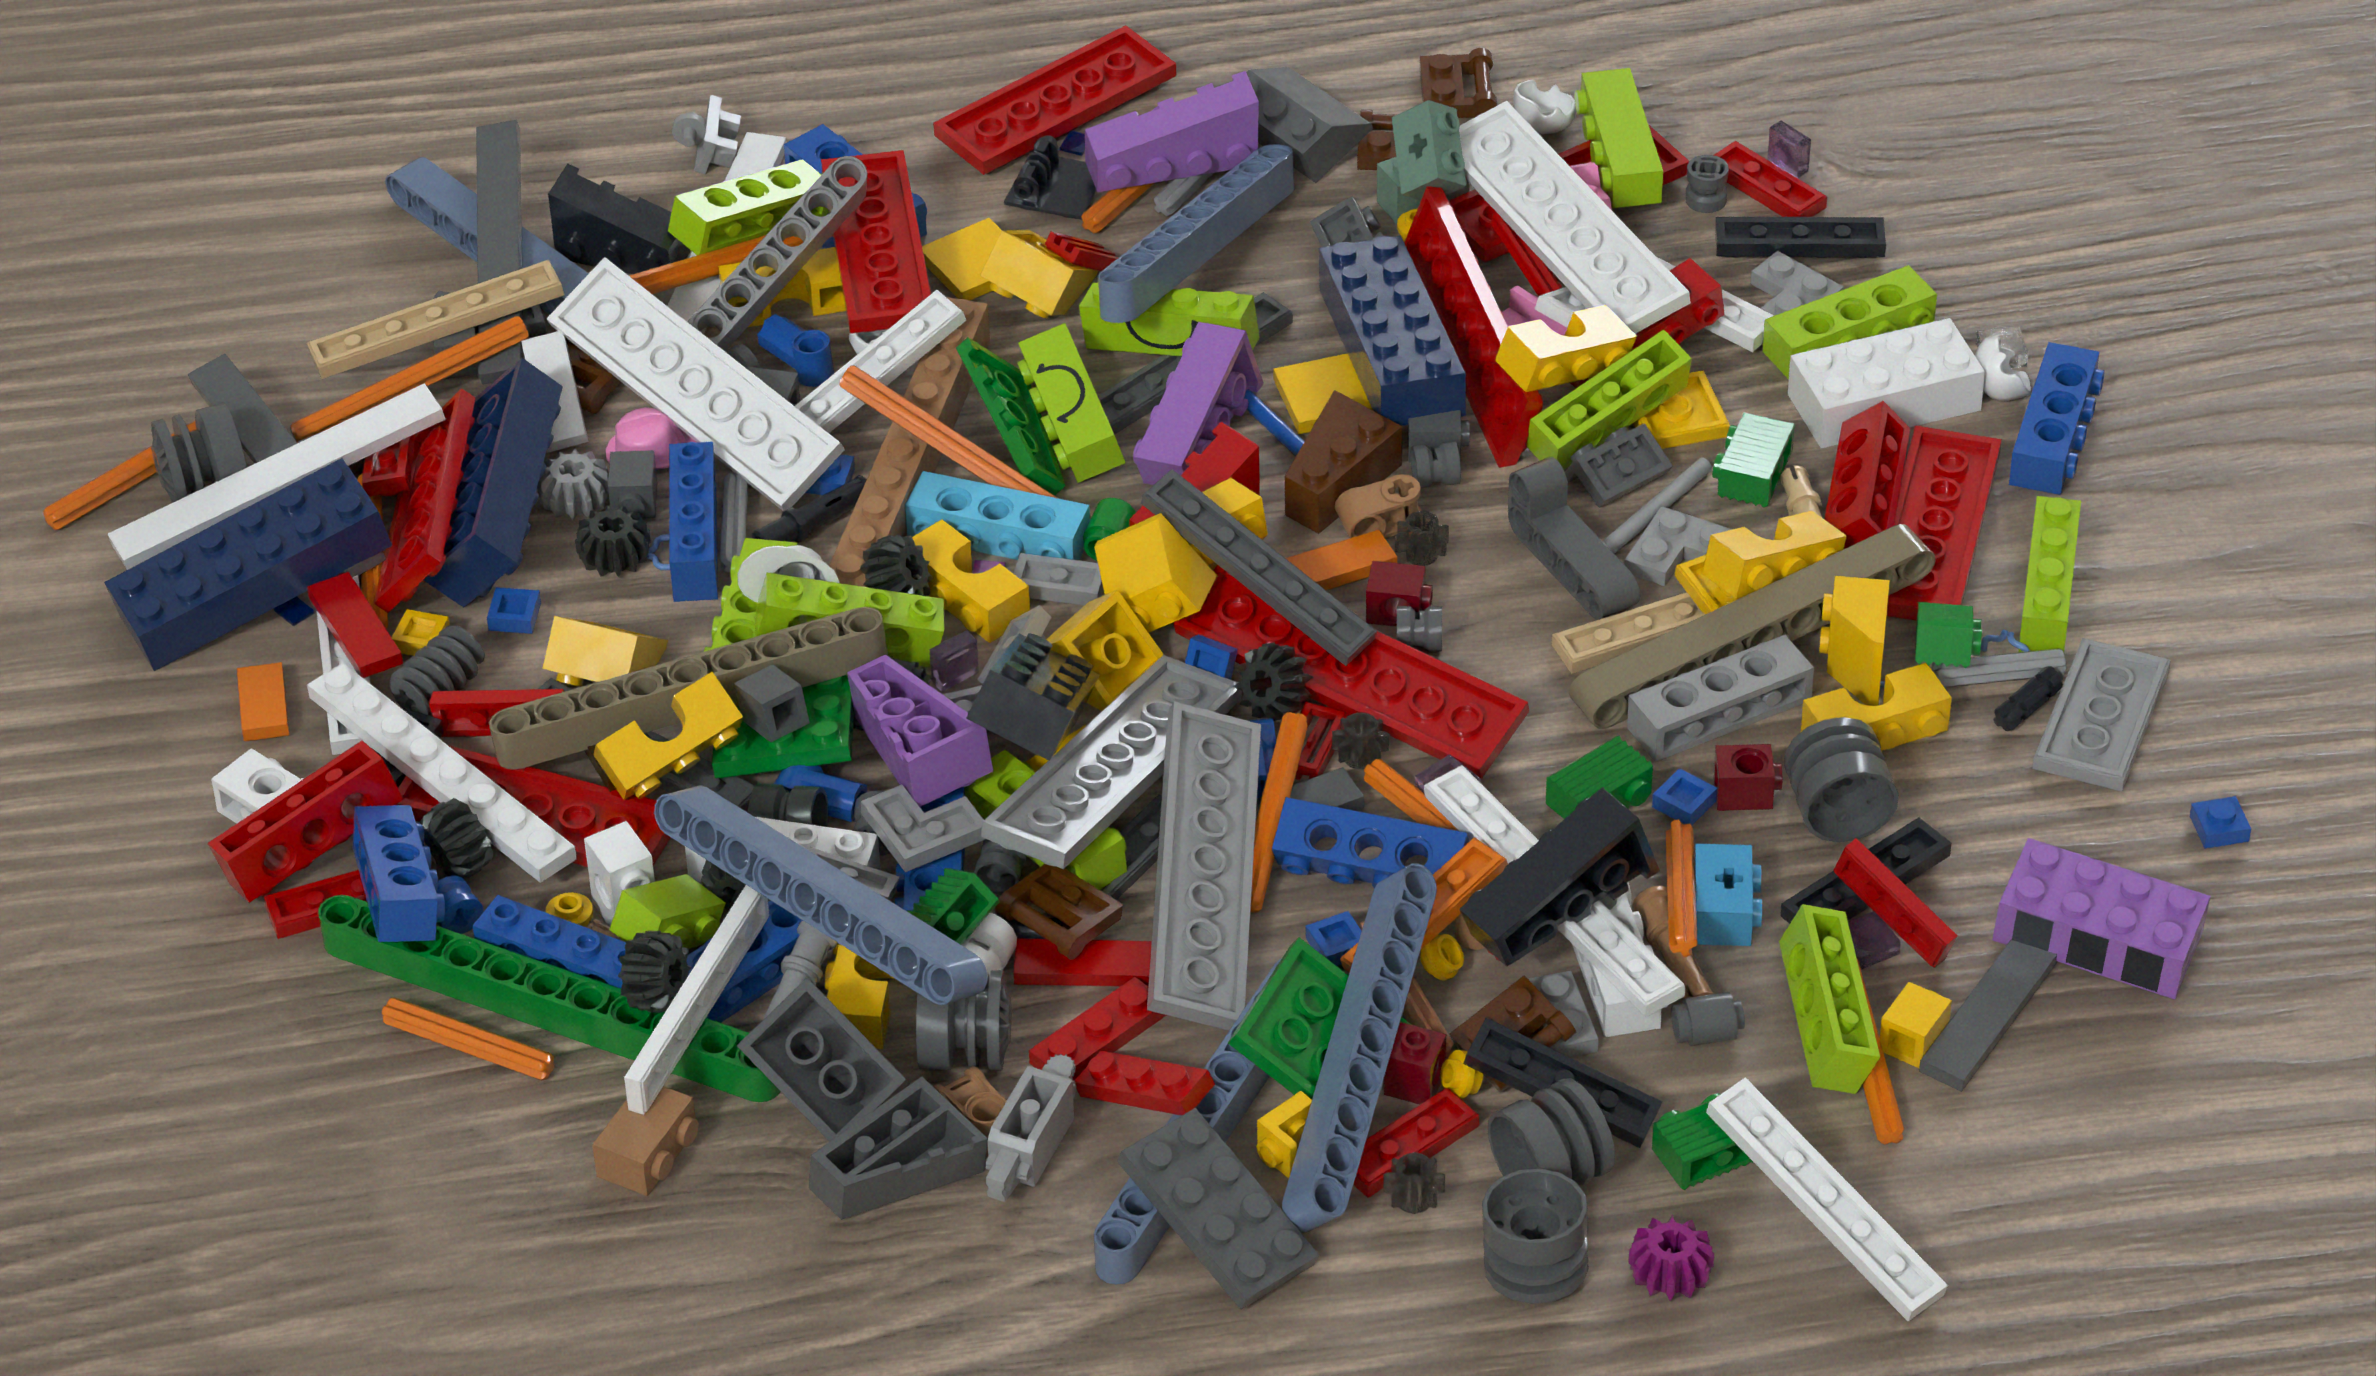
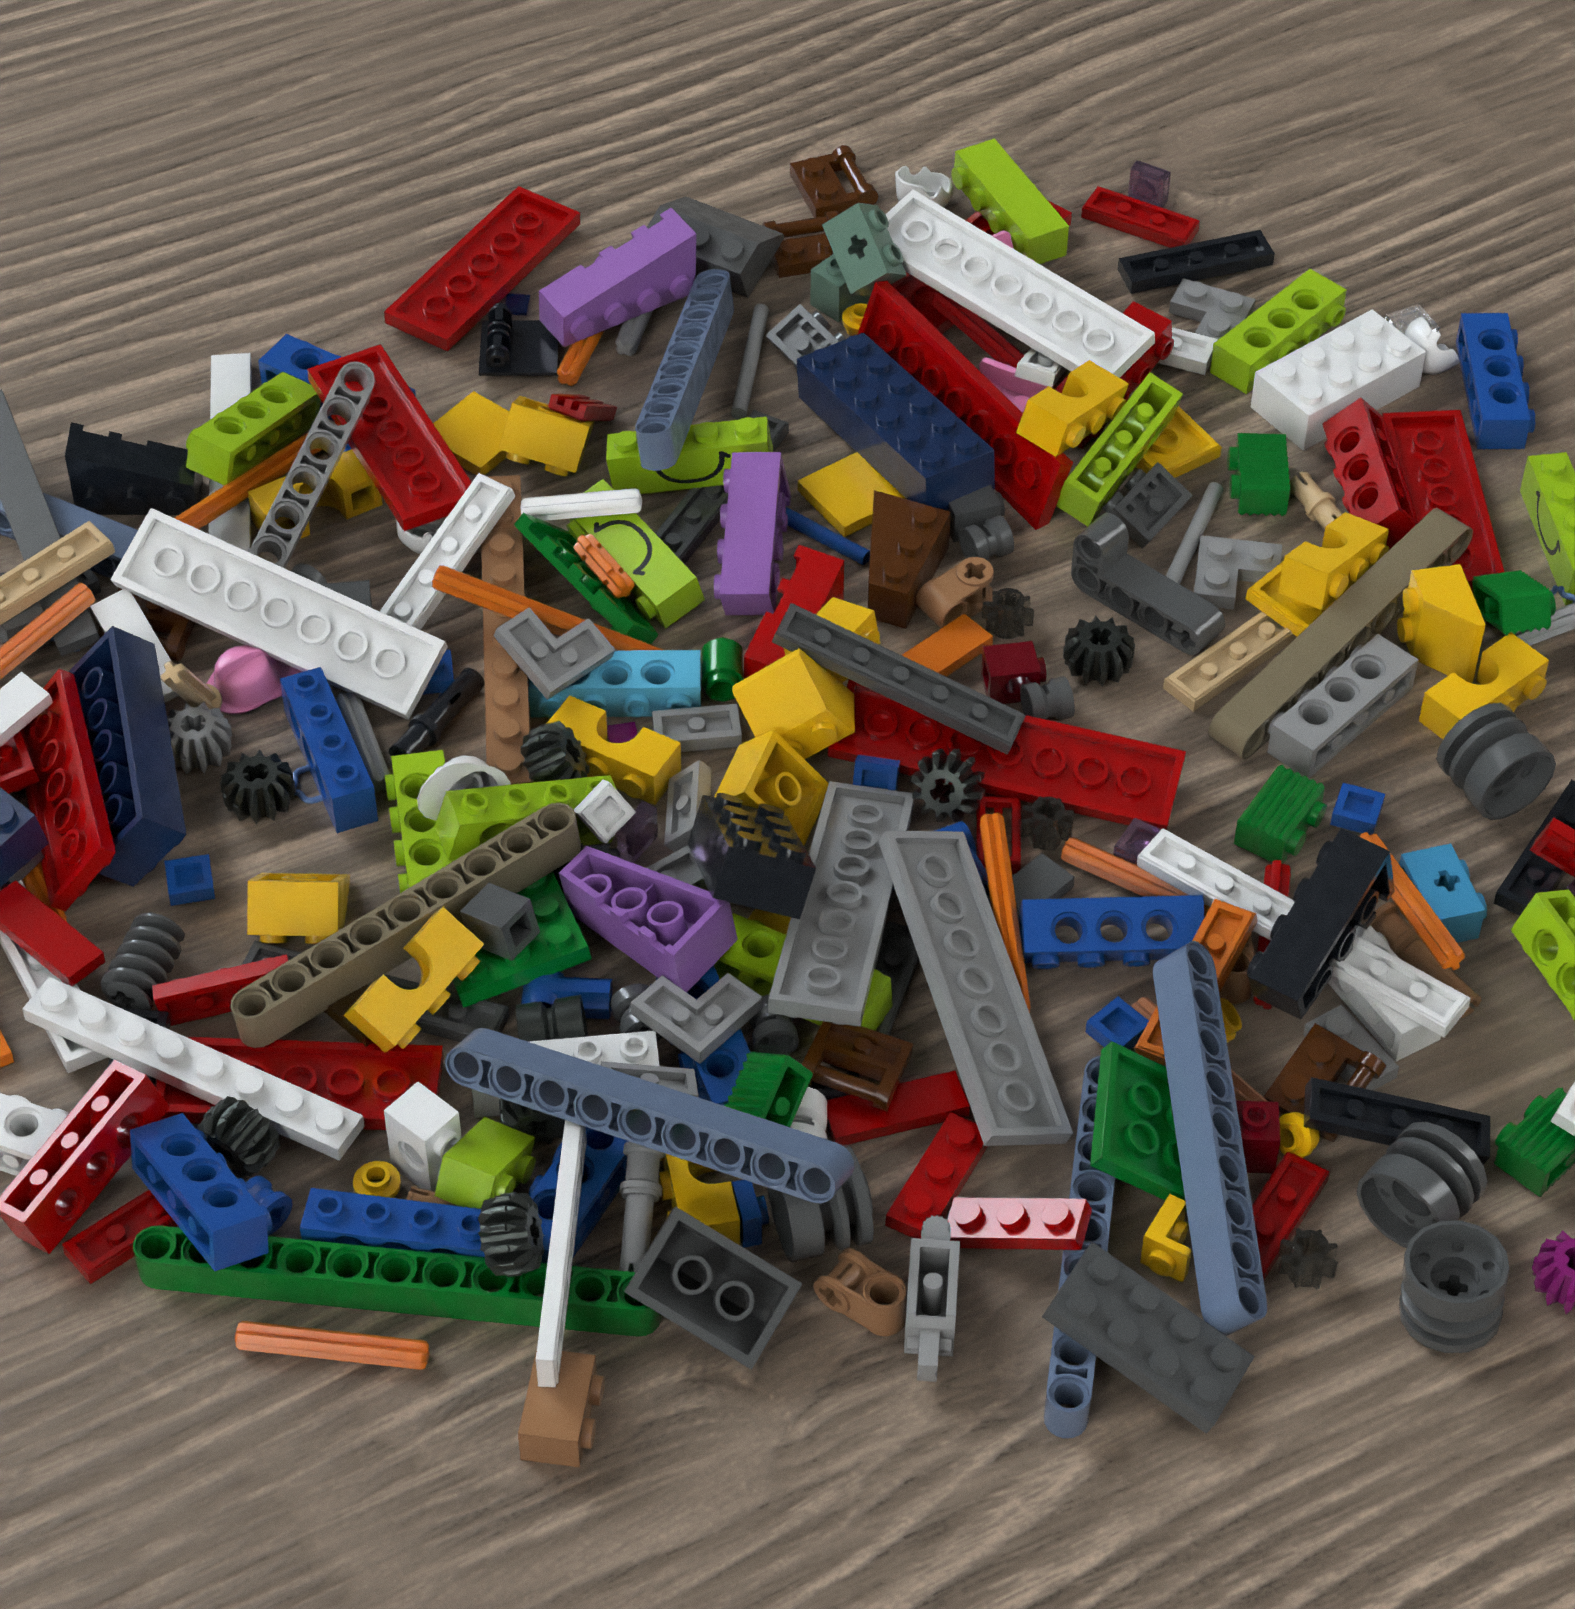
camera: 20 degrees left, 5 degrees up
(417, 630) = (107, 923): yellow plate -> none
(577, 431) = (190, 686): none -> tan axle
(633, 482) = (253, 723): dark grey brick -> none
(711, 134) = (178, 365): light grey hips -> none
(803, 350) = (361, 556): blue piece -> none
(897, 1152) = (818, 1359): dark grey wedge -> none
(898, 1017) = (751, 1211): none -> blue plate
(919, 628) = (604, 811): none -> white tile
(934, 482) = (550, 661): none -> light grey plate
(1031, 406) = (604, 566): none -> orange axle
(1033, 343) = (583, 504): none -> white axle
(1285, 243) = (750, 361): none -> light grey bar
(1496, 592) = (1099, 650): none -> pearl dark grey gear
(1706, 184) = (1095, 229): dark grey wheel -> none
(1707, 1019) = (1487, 1022): dark grey brick -> none
(1746, 777) = (1403, 775): dark red brick -> none

